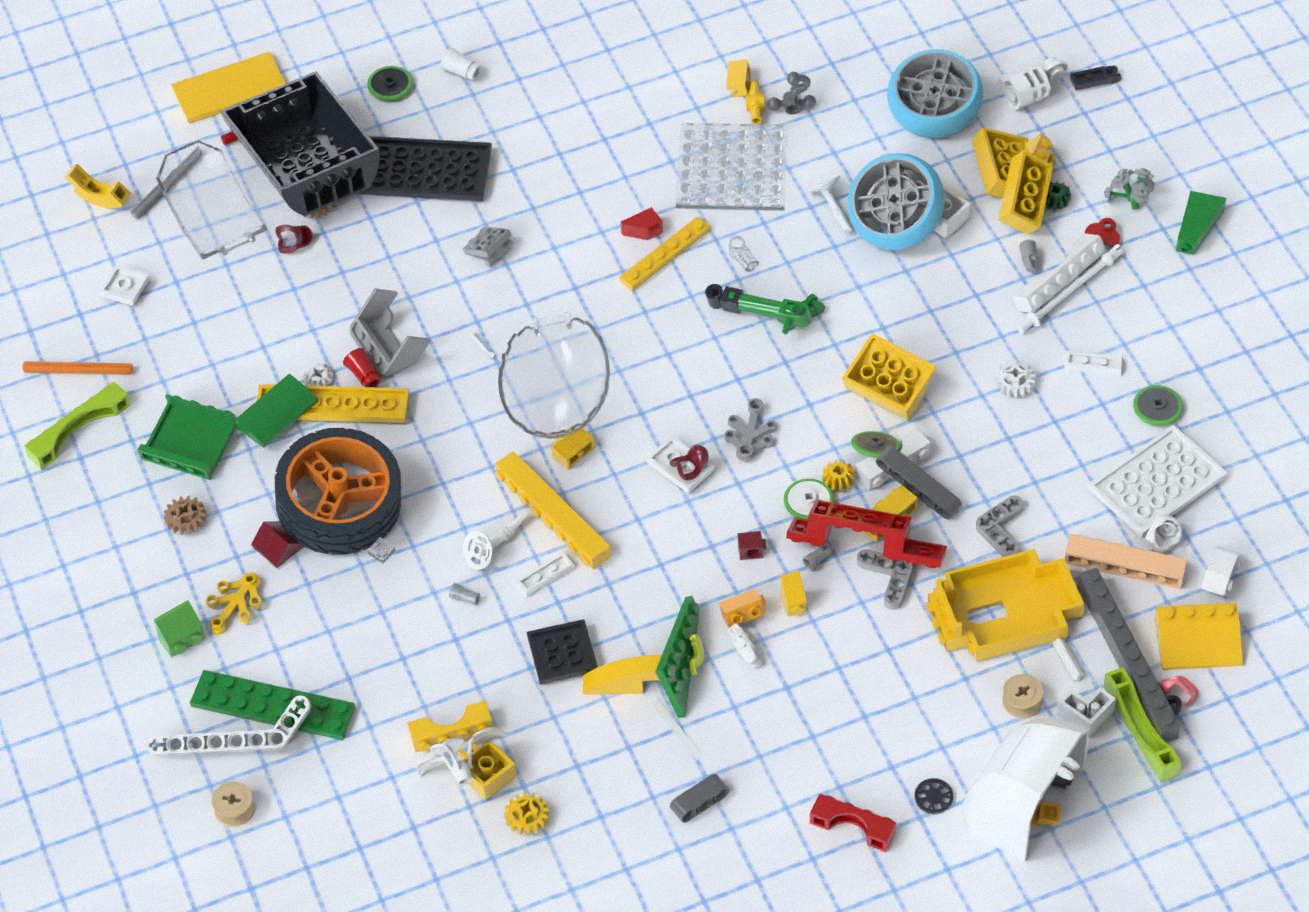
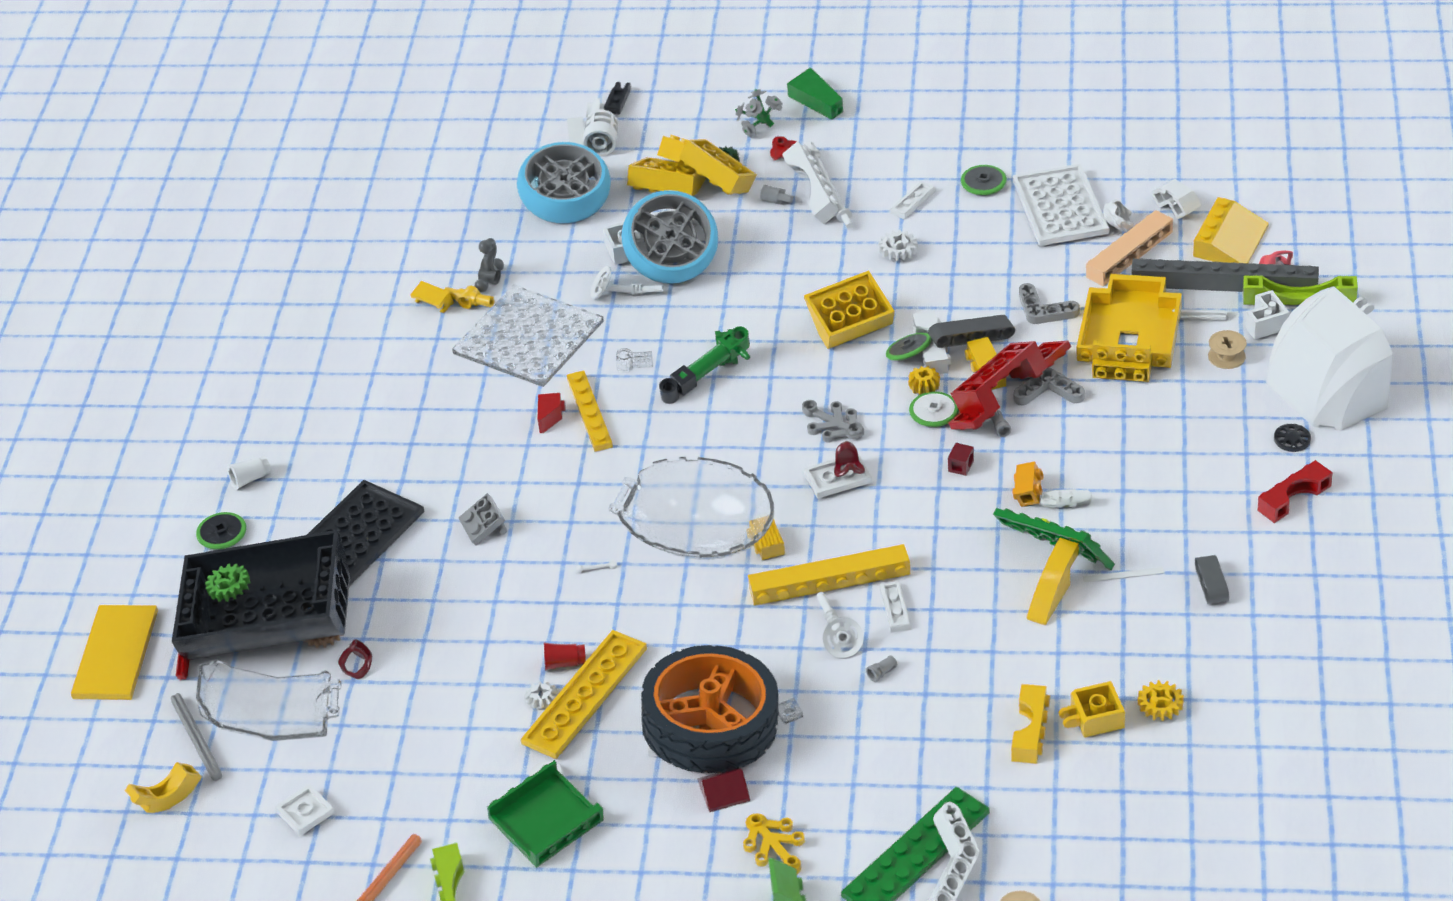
camera: 60 degrees left, 10 degrees down
(185, 515) = (638, 848): medium nougat gear -> none
(275, 410) = (568, 733): green slope -> none
(287, 110) = (227, 582): none -> bright green gear
(372, 333) = (530, 639): light grey windscreen -> none
(461, 769) = (1098, 716): white plant -> none
(561, 651) = (993, 620): black plate -> none
(792, 593) = (1036, 446): yellow slope -> none

